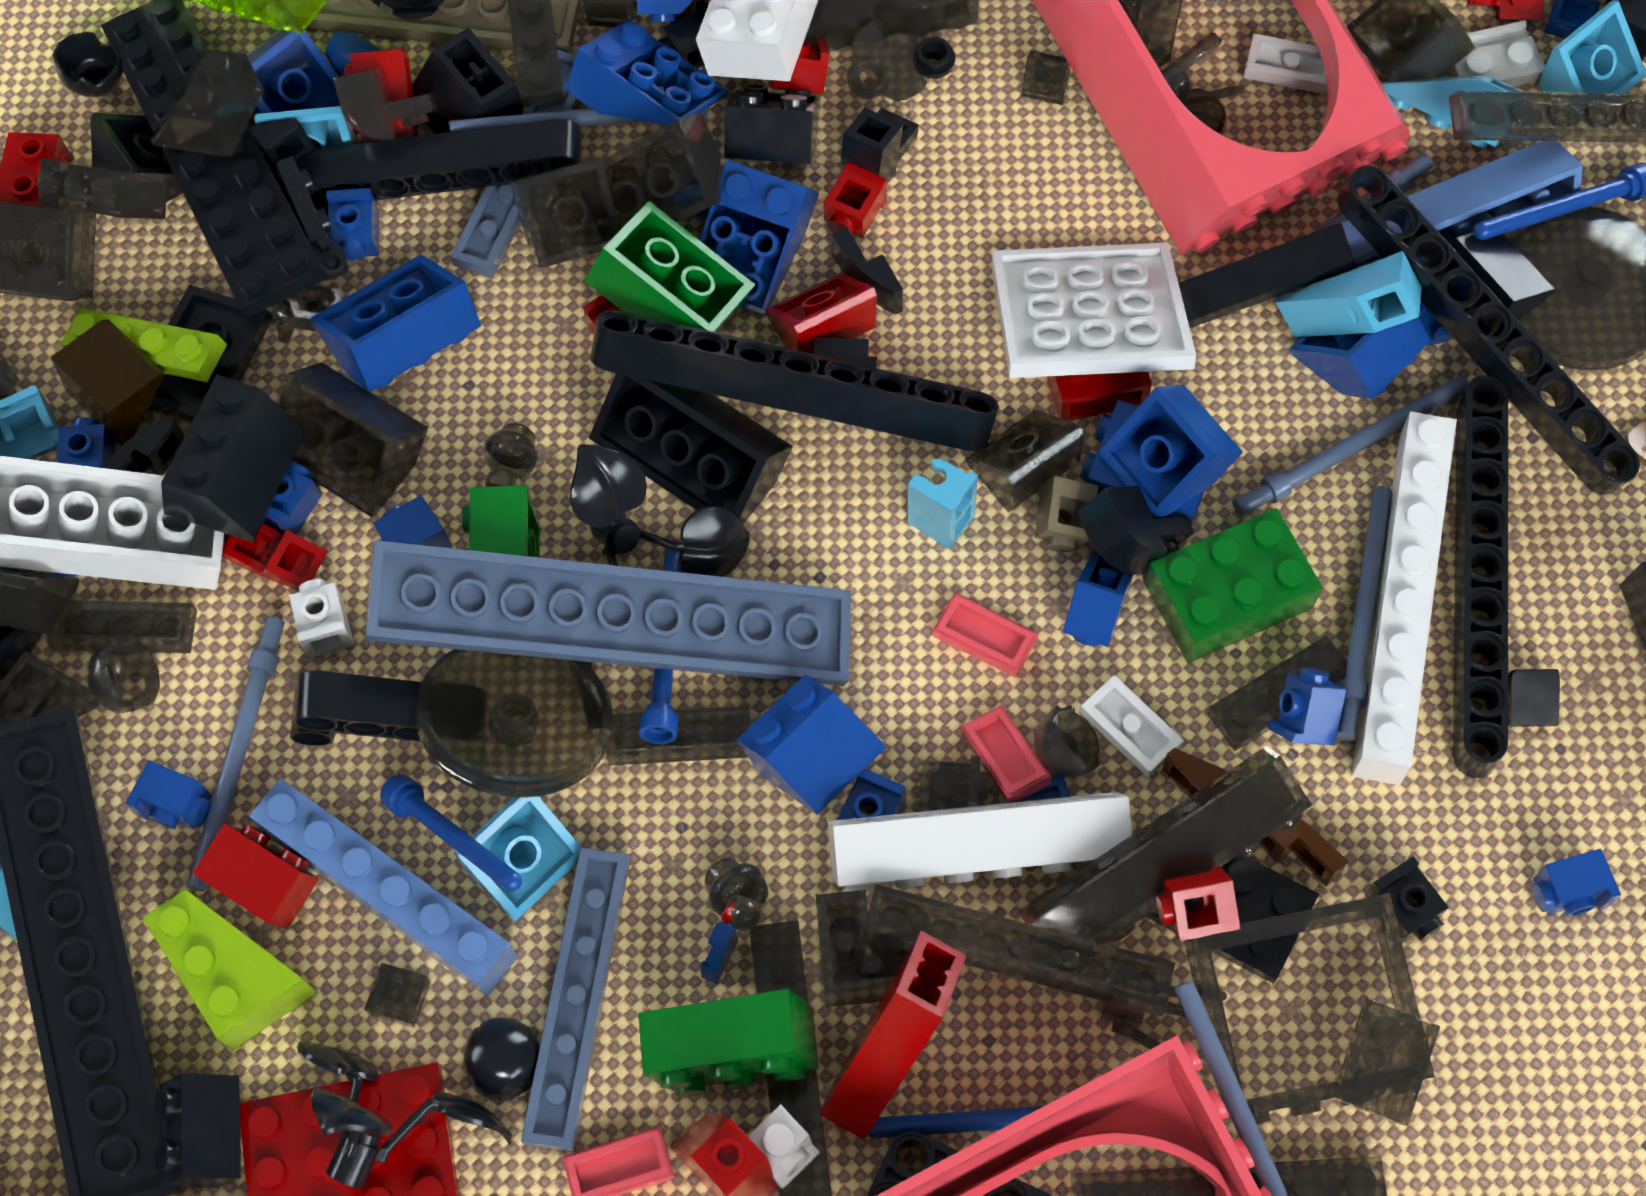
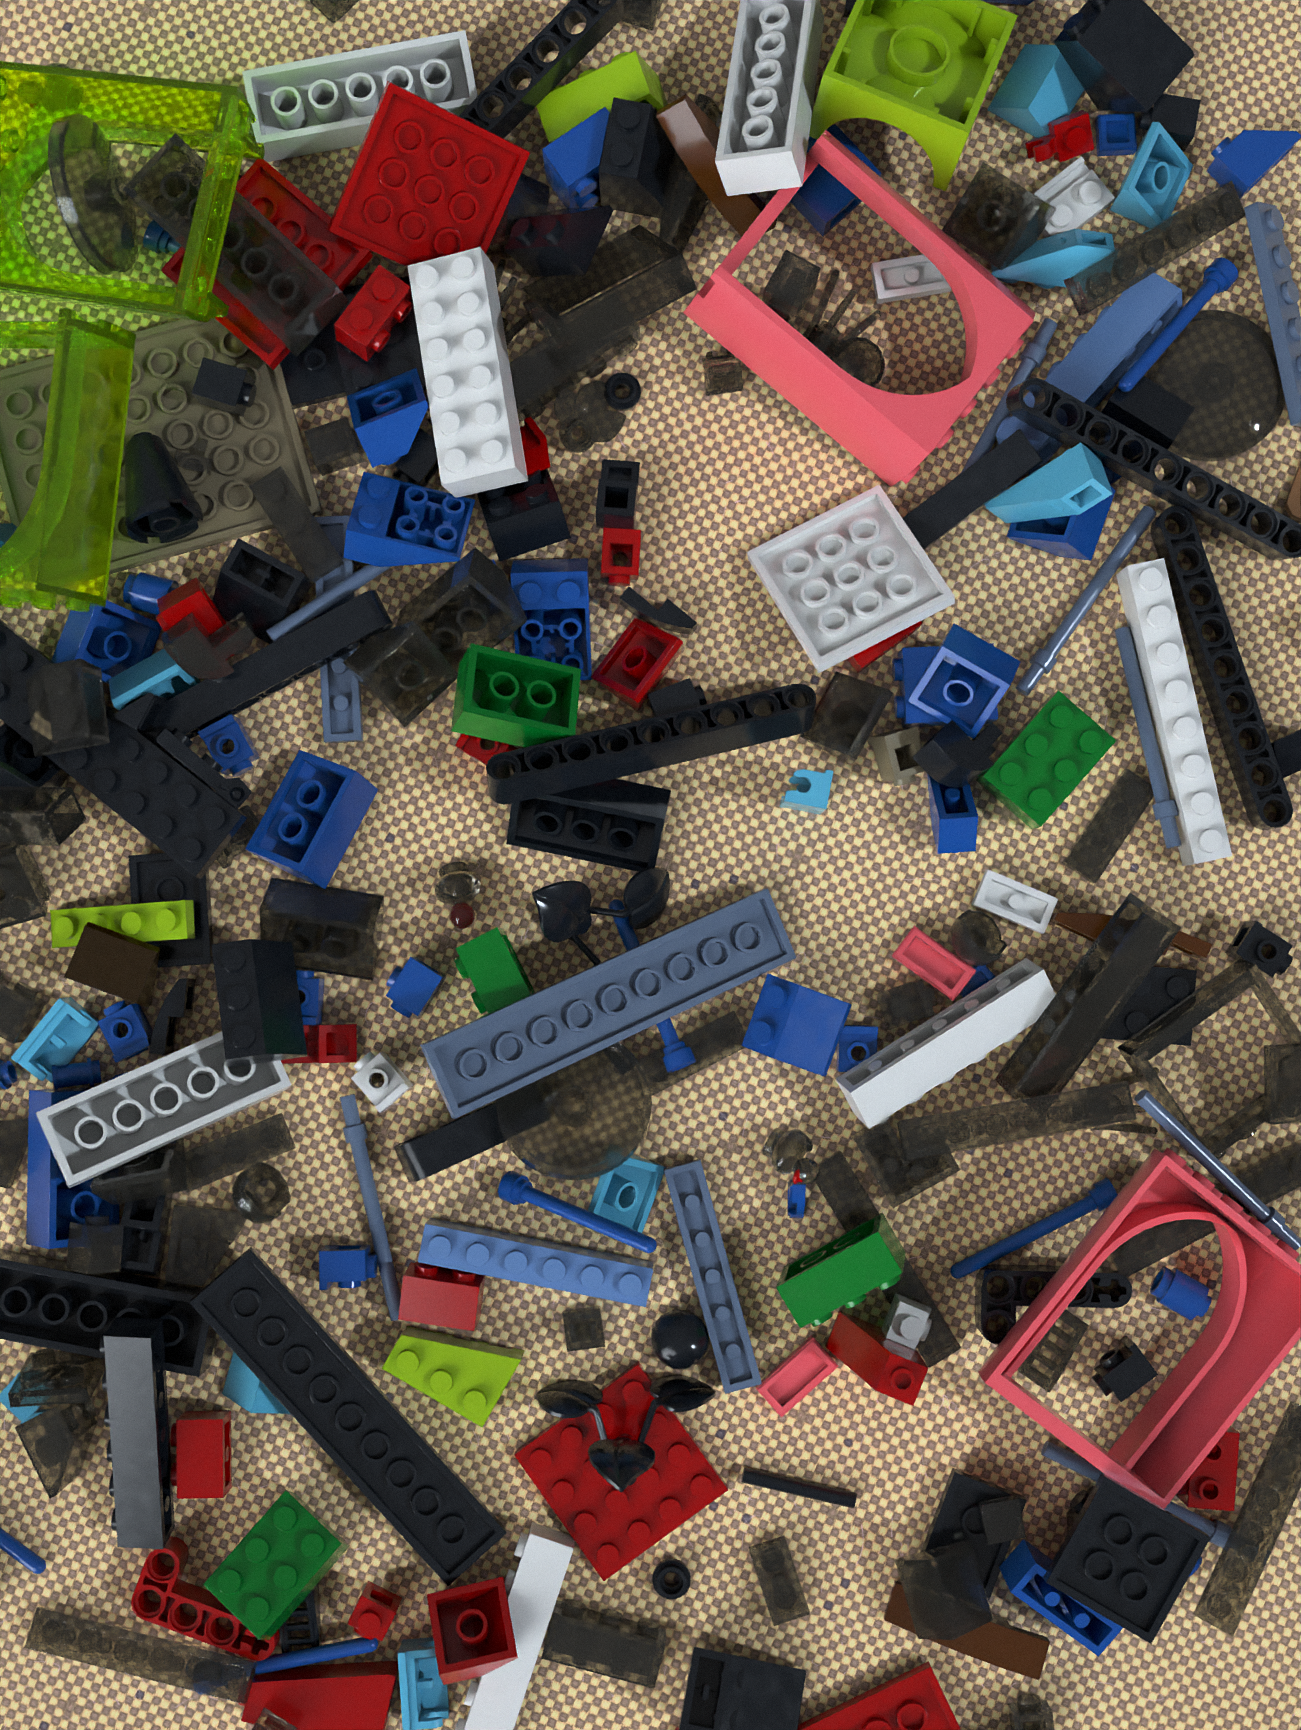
camera: 25 degrees left, 20 degrees up
(198, 1131) = (501, 1490): black brick -> none
(894, 1035) = (959, 1217): red slope -> none
(985, 634) = (877, 873): coral tile -> none
(1211, 915) = (1130, 1034): red brick -> none
(1309, 708) = (1140, 839): blue brick -> none

